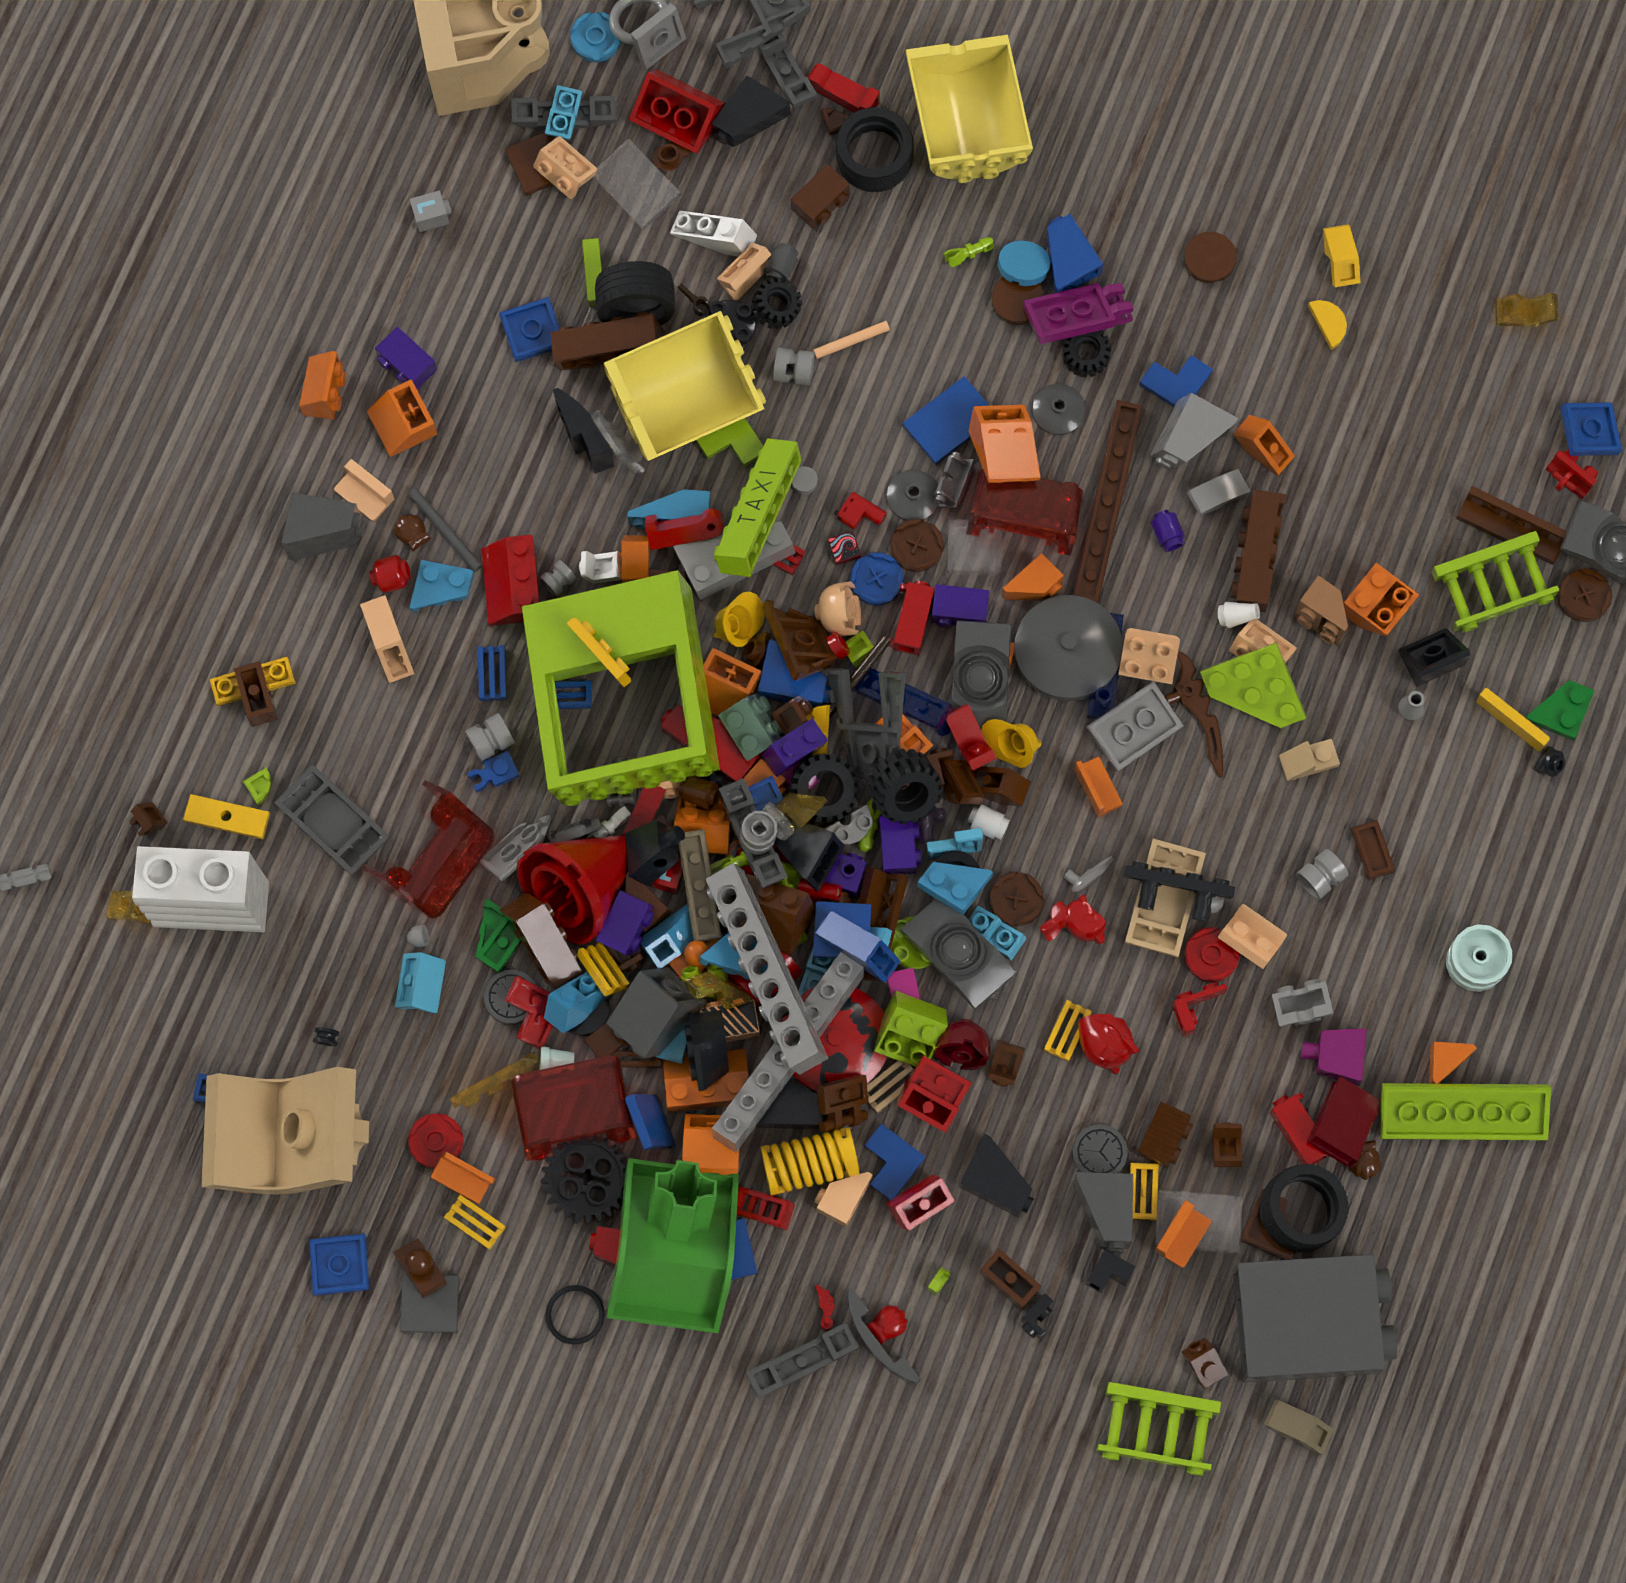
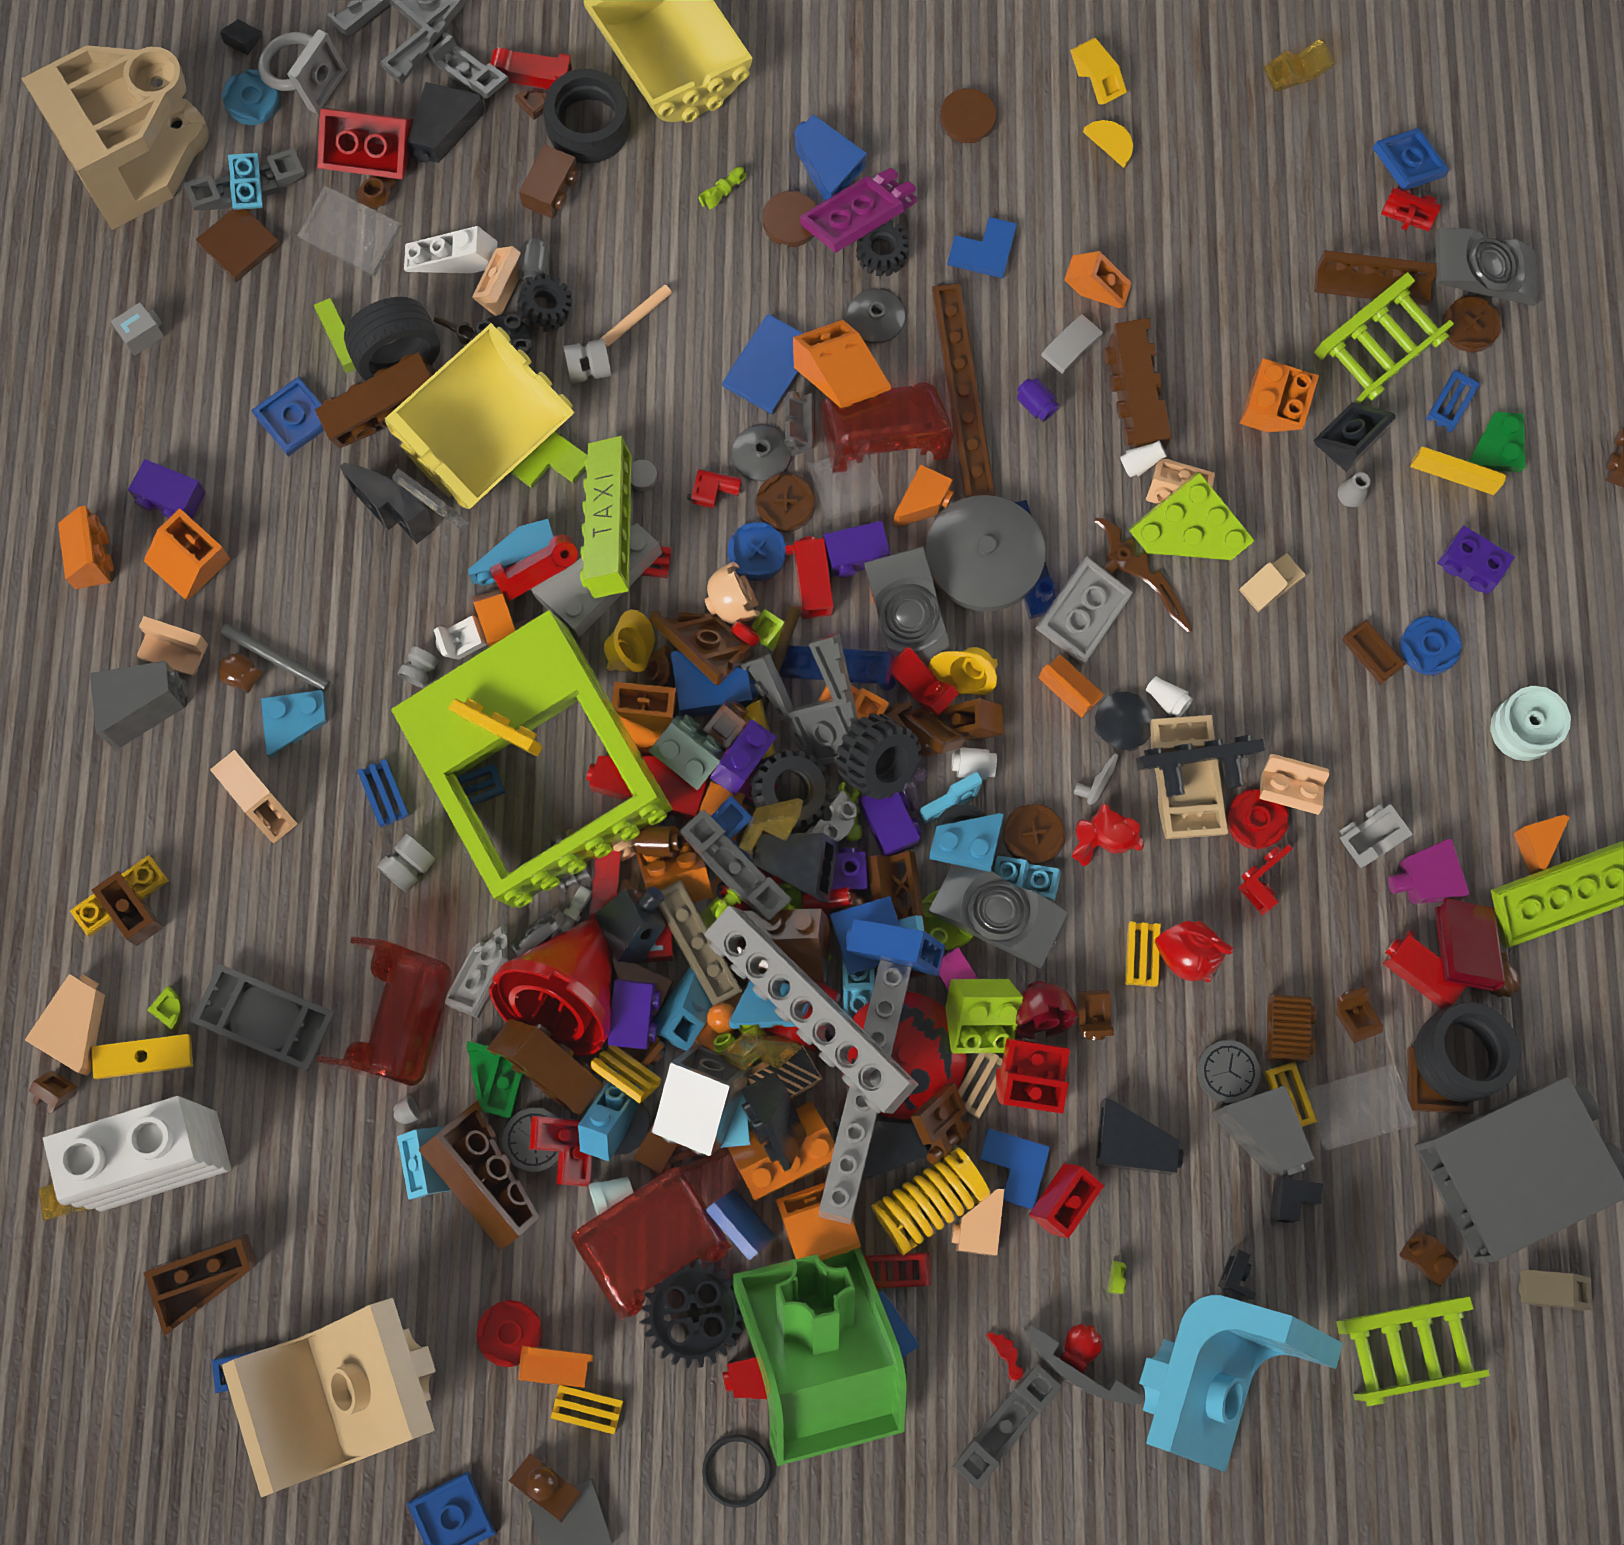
camera: 30 degrees left, 0 degrees up
(180, 770) = (70, 1024): none -> light nougat slope
(209, 1006) = (195, 1279): none -> reddish brown wedge
(326, 1036) = (343, 1263): black bush -> none
(390, 573) = (232, 725): red head -> none
(457, 1007) = (481, 1176): none -> reddish brown wedge
(493, 1083) = (564, 1226): clear yellow wing -> none
(498, 770) = (428, 896): blue plate -> none
(510, 578) = (365, 685): red slope -> none
(564, 166) = (266, 236): light nougat bracket -> none
(758, 832) = (742, 862): light grey wheel -> none
(784, 826) = (760, 840): clear arm -> none
(844, 548) = (711, 530): tile -> none
(981, 1375) = (1205, 1375): none -> medium azure piece
(1010, 1279) = (1195, 1248): reddish brown brick -> none
(1024, 263) = (784, 180): dark azure tile -> none
(1131, 831) = (1124, 720): none -> black dish
(1149, 655) = (1075, 530): light nougat bracket -> none
(1178, 826) = (1170, 697): none -> white cone
(1183, 1235) = (1352, 1128): orange panel -> none
(1189, 430) = (1021, 288): light grey slope -> none
(1323, 611) = (1231, 425): medium nougat slope -> none
(1325, 871) = (1338, 692): light grey wheel -> none
(1425, 862) = (1430, 645): none -> blue tile
(1493, 803) = (1475, 560): none -> dark purple brick
(1520, 671) = (1442, 419): none -> blue tile
(1550, 762) = (1510, 500): black plate -> none

